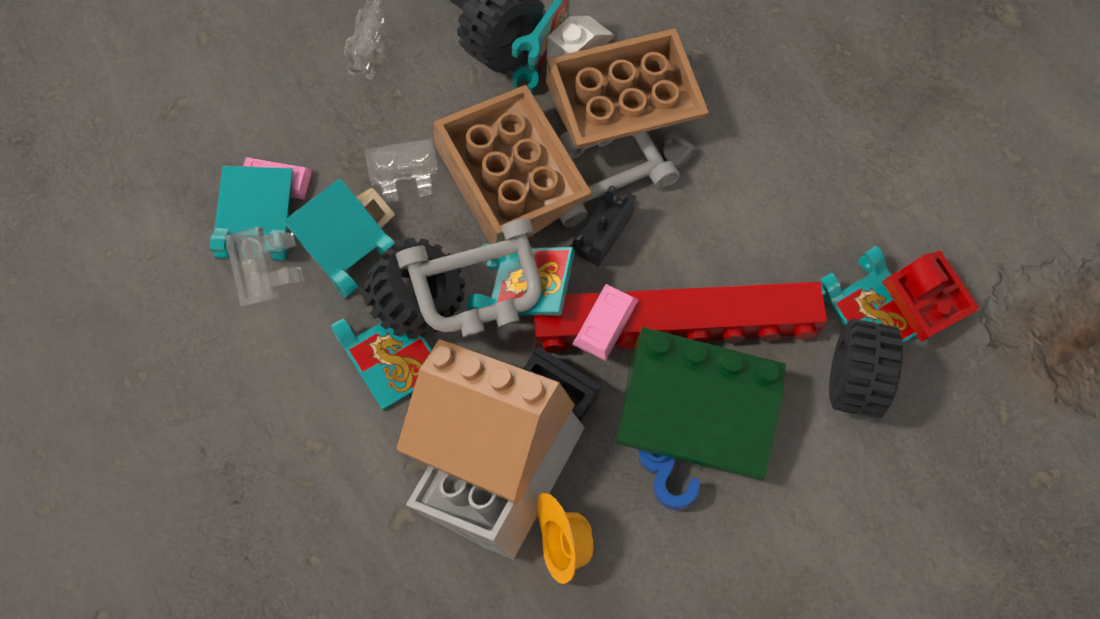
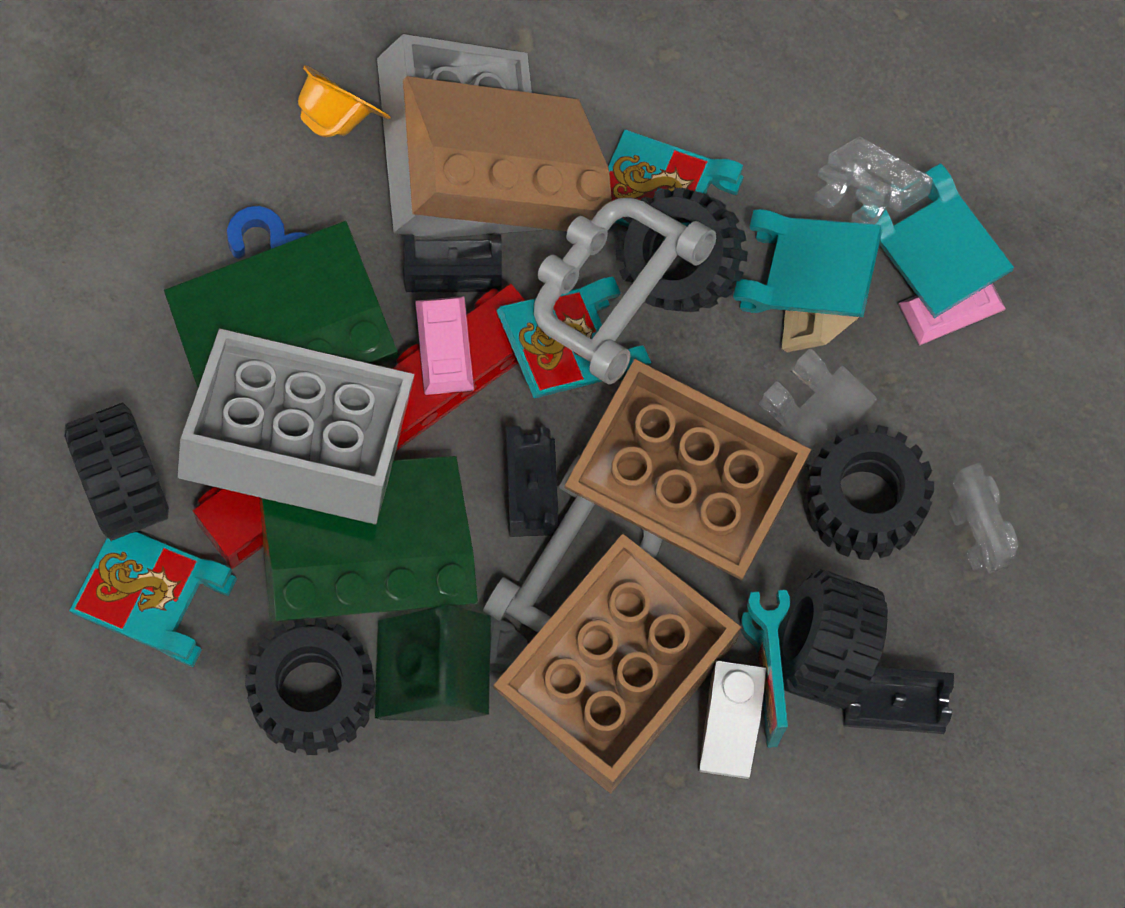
camera: 145 degrees right, 5 degrees up
(407, 76) = (877, 455): none -> black tyre
(729, 161) = (433, 665): none -> clear green slope
(731, 237) = (344, 566): none -> dark green slope
(739, 309) = (295, 426): none -> light grey slope
(816, 165) = (310, 645): none -> black tyre
(930, 295) = (86, 639): red plate -> none

